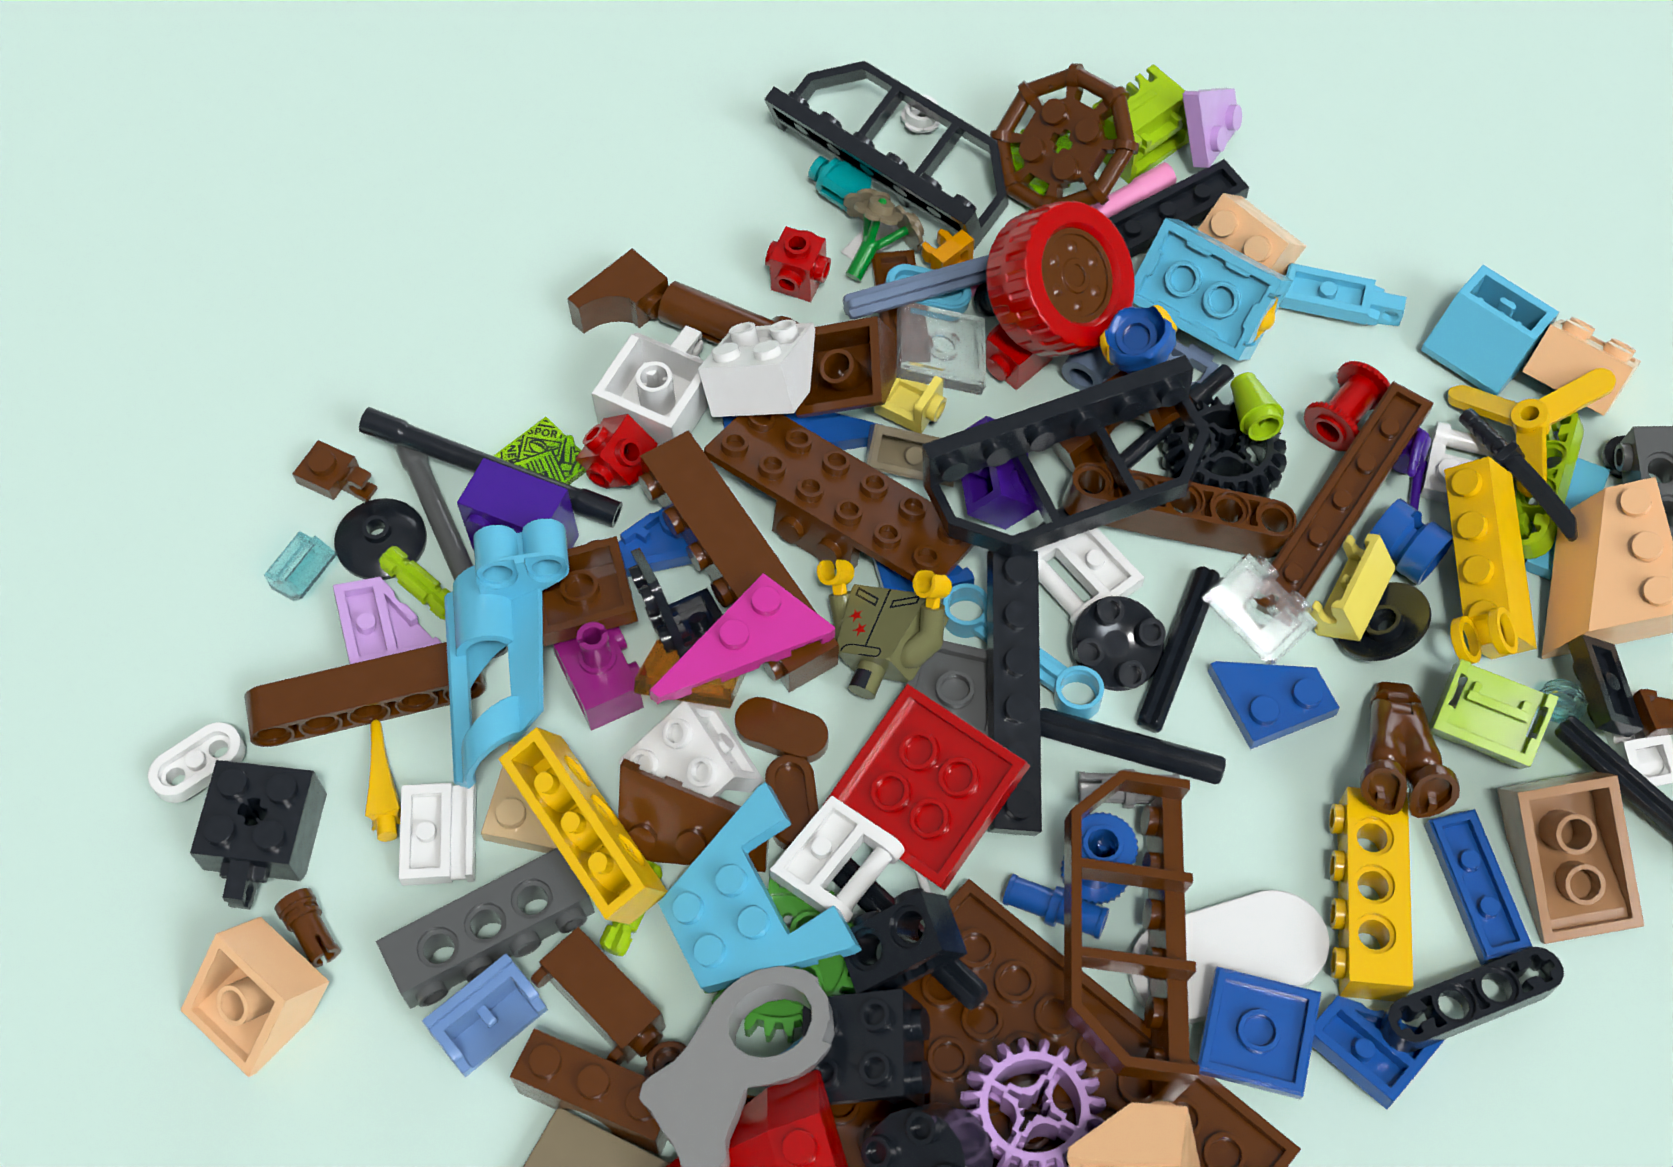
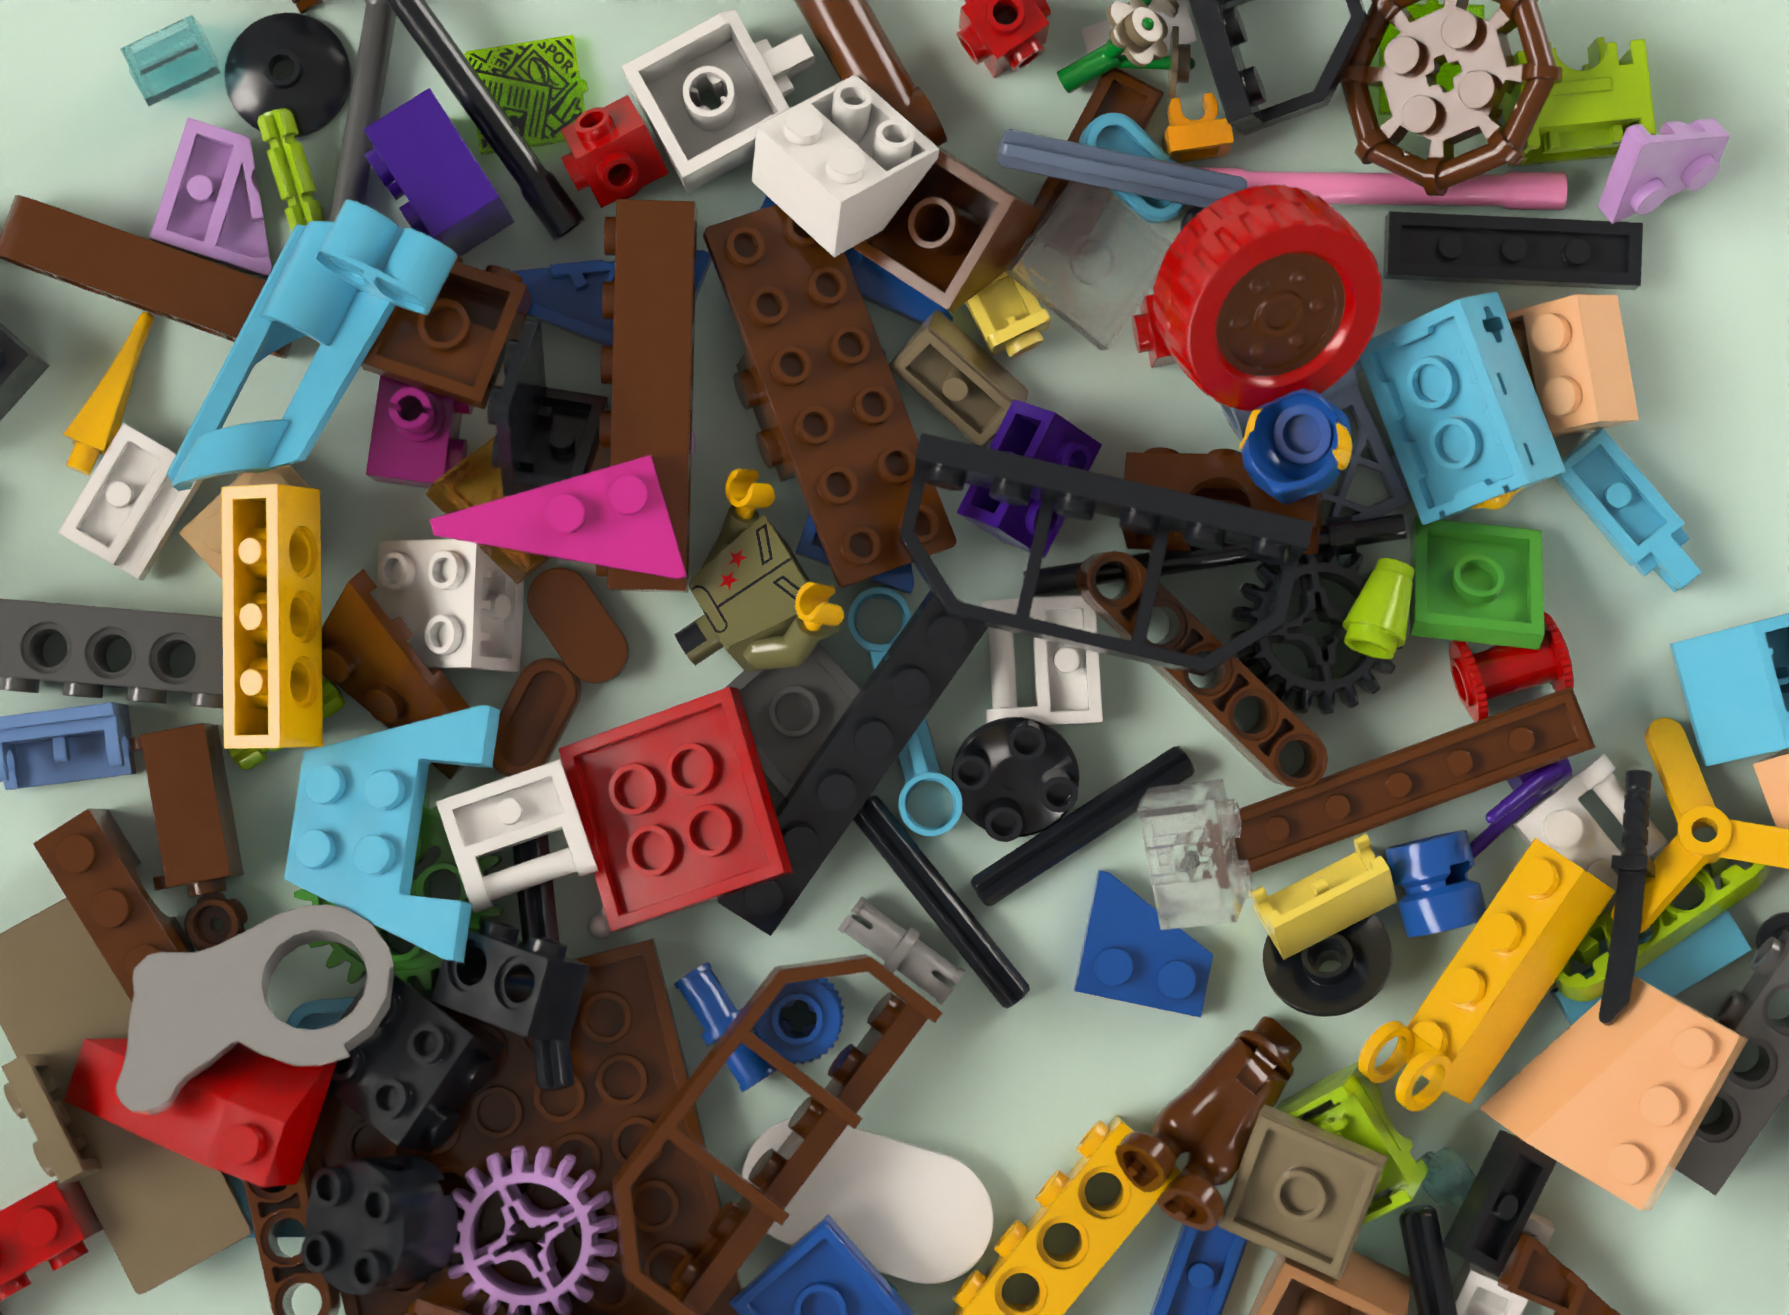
camera: 30 degrees right, 25 degrees up
(1299, 371) = (1477, 583): none -> bright green plate
(1492, 741) = (1302, 1191): none -> dark tan tile

